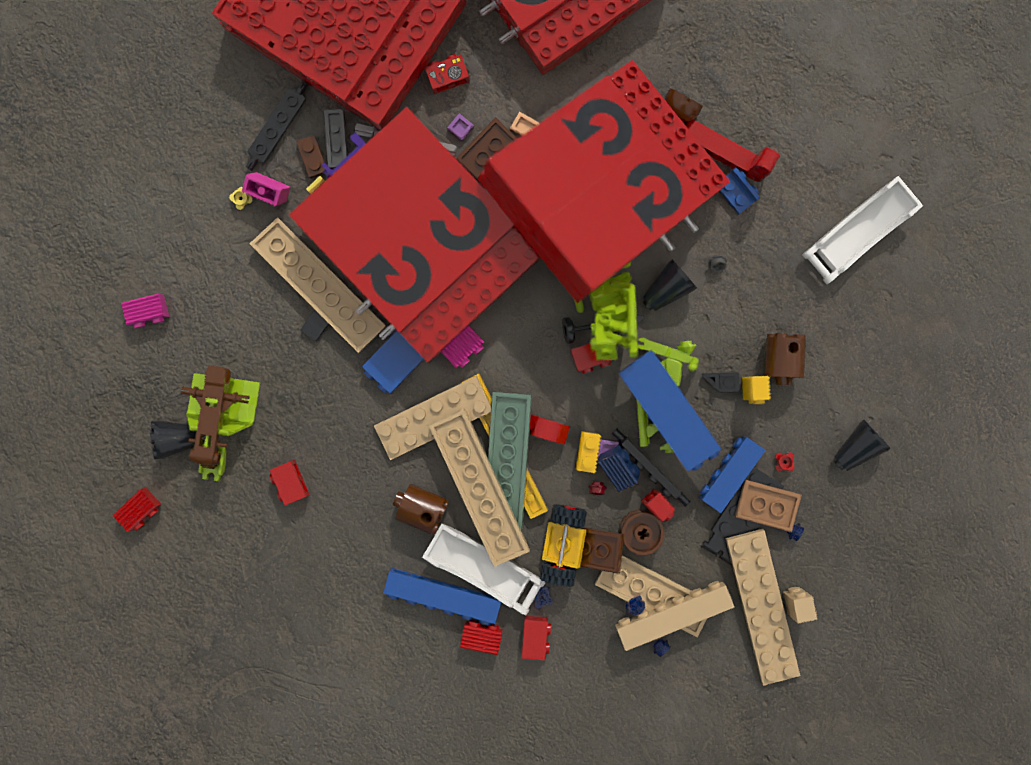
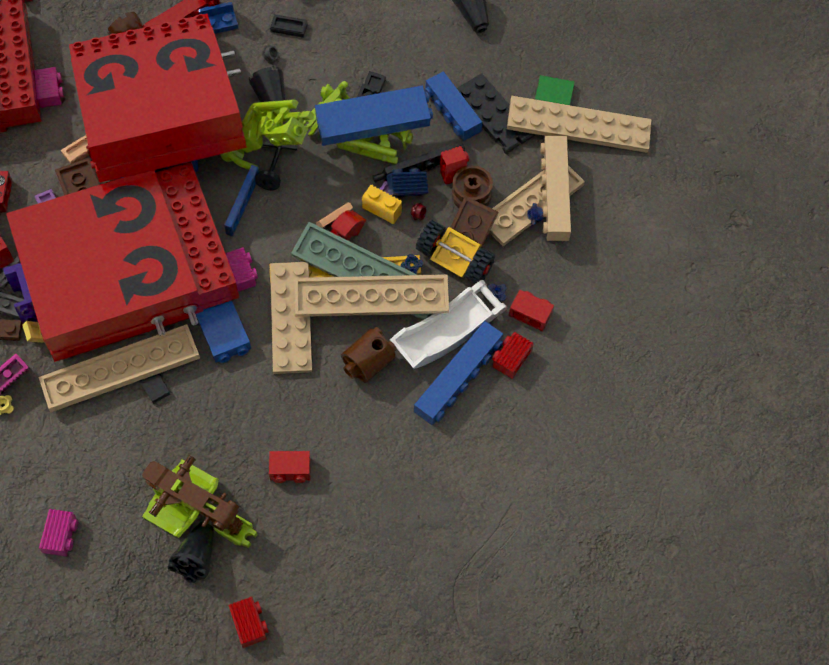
camera: 70 degrees left, 25 degrees down
(536, 315) = (241, 201): none -> blue tile
(536, 505) = (414, 260): none -> clear blue plate
(557, 411) = (332, 216): none -> light nougat tile
(583, 61) = (48, 87): none -> dark pink brick
(585, 359) = (299, 170): red brick -> none
(661, 647) = (583, 214): clear blue plate -> none
(756, 389) = (388, 59): yellow brick -> none
(761, 265) = (288, 25): none -> black tile
(768, 505) = (492, 87): medium nougat tile -> none
(785, 357) = (372, 30): reddish brown cylinder -> none
(789, 457) = (461, 62): red plate -> none
(792, 566) = (554, 90): none -> green tile
(796, 532) = (524, 79): clear blue plate -> none
(799, 605) = (586, 91): tan brick -> none

